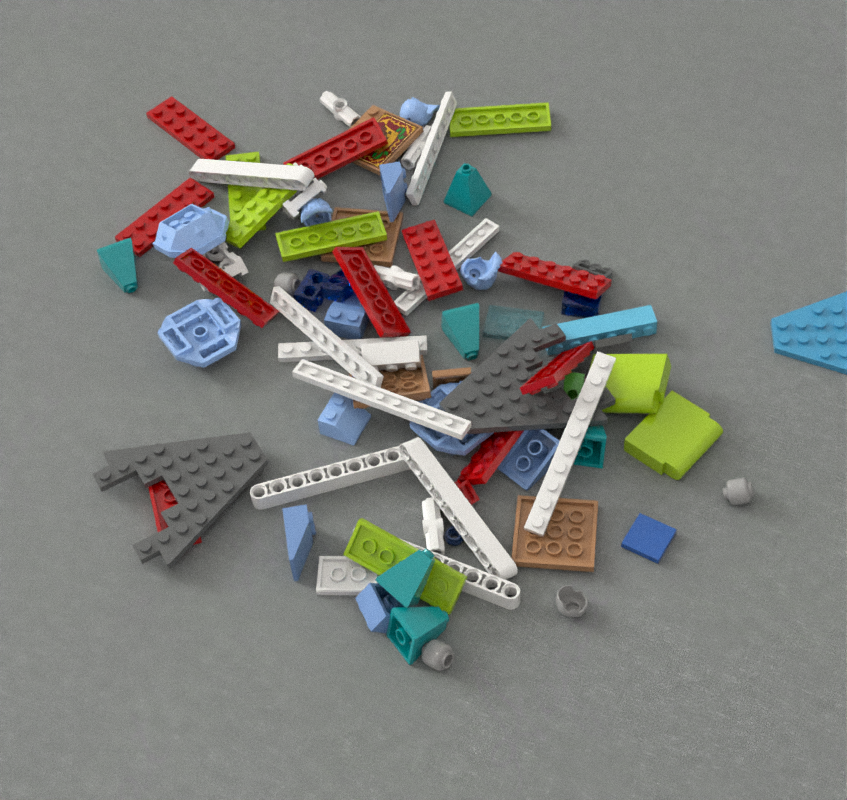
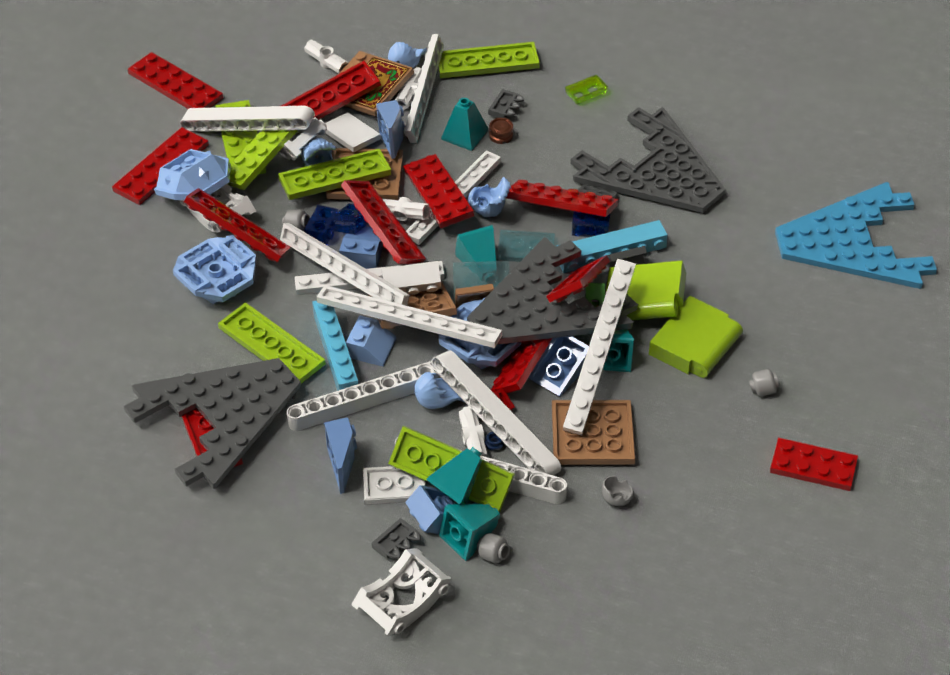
camera: 10 degrees left, 5 degrees down
(120, 264) = (122, 211): teal slope -> none
(246, 413) = (270, 341): none -> lime plate
(307, 424) = (334, 346): none -> medium azure brick
(341, 636) = (394, 538): none -> dark grey plate
(345, 669) = (371, 596): none -> white fence
(353, 191) = (351, 132): none -> white tile
(399, 479) = (434, 392): none -> light blue piece
(460, 354) = (479, 273): none -> clear light blue tile
(503, 197) = (501, 130): none -> copper wheel
(510, 168) = (505, 104): none -> dark grey plate
(592, 153) = (583, 85): none -> clear neon green piece
(648, 538) = (683, 430): blue tile -> none
(667, 255) = (667, 175): none -> dark grey wing
(780, 585) = (813, 464): none -> red plate

